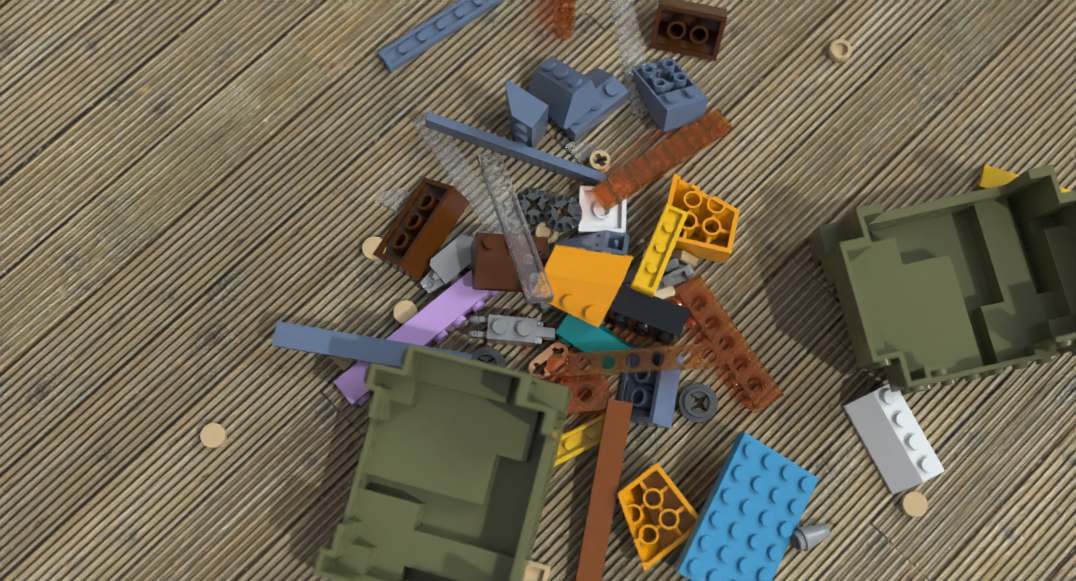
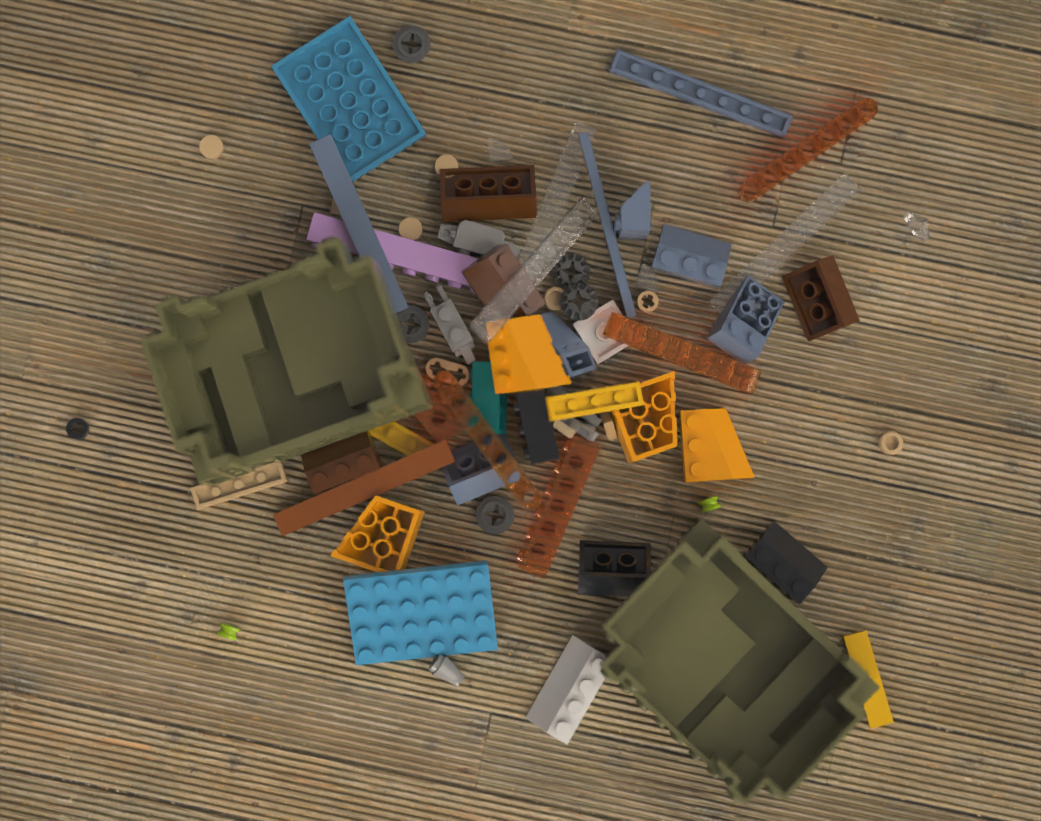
camera: 60 degrees right, 10 degrees up
(251, 286) = (350, 96): none -> dark azure plate
(252, 199) = (403, 36): none -> dark grey gear
(564, 90) = (679, 230): sand blue slope -> none
(566, 506) = (341, 462): none -> reddish brown slope
(755, 189) = (711, 447): none -> light orange wedge
(802, 219) = (709, 504): none -> lime bush
(808, 332) = (612, 567): none -> black slope
(892, 187) = (785, 562): none -> black slope
(914, 504) = (528, 739): tan tile -> none

